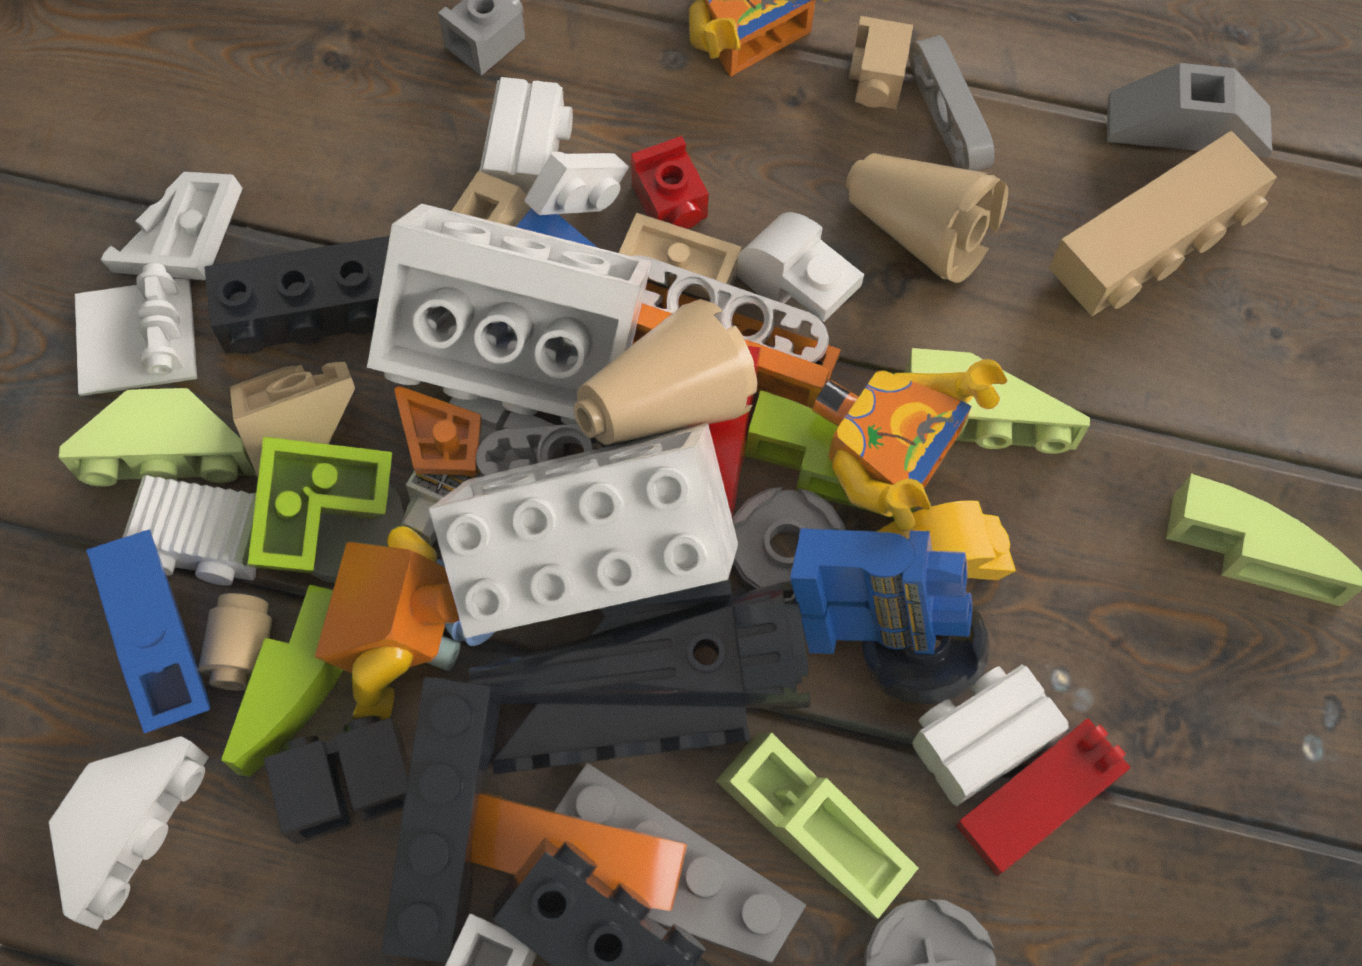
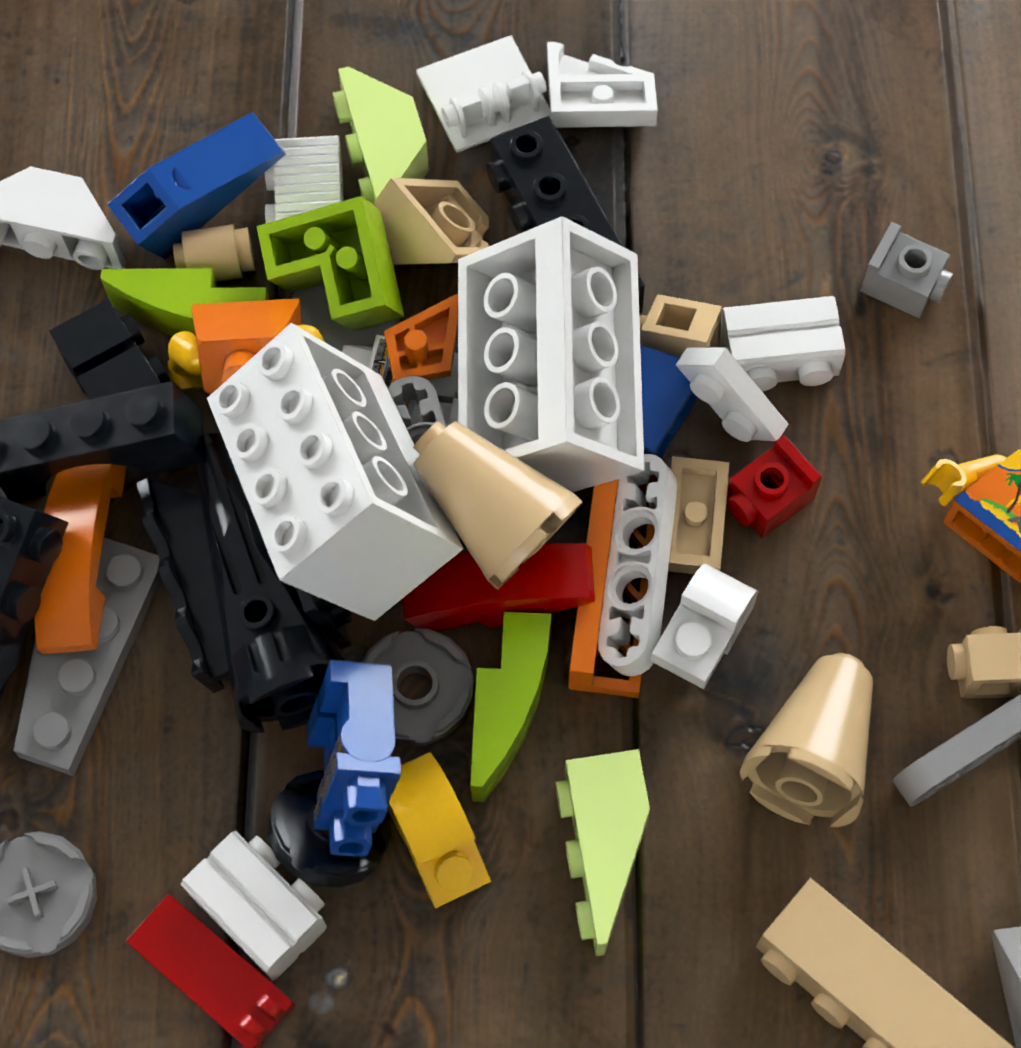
camera: 80 degrees right, 0 degrees up
(817, 823) = (142, 764): yellowish green slope -> none
(901, 432) = (513, 740): torso -> none

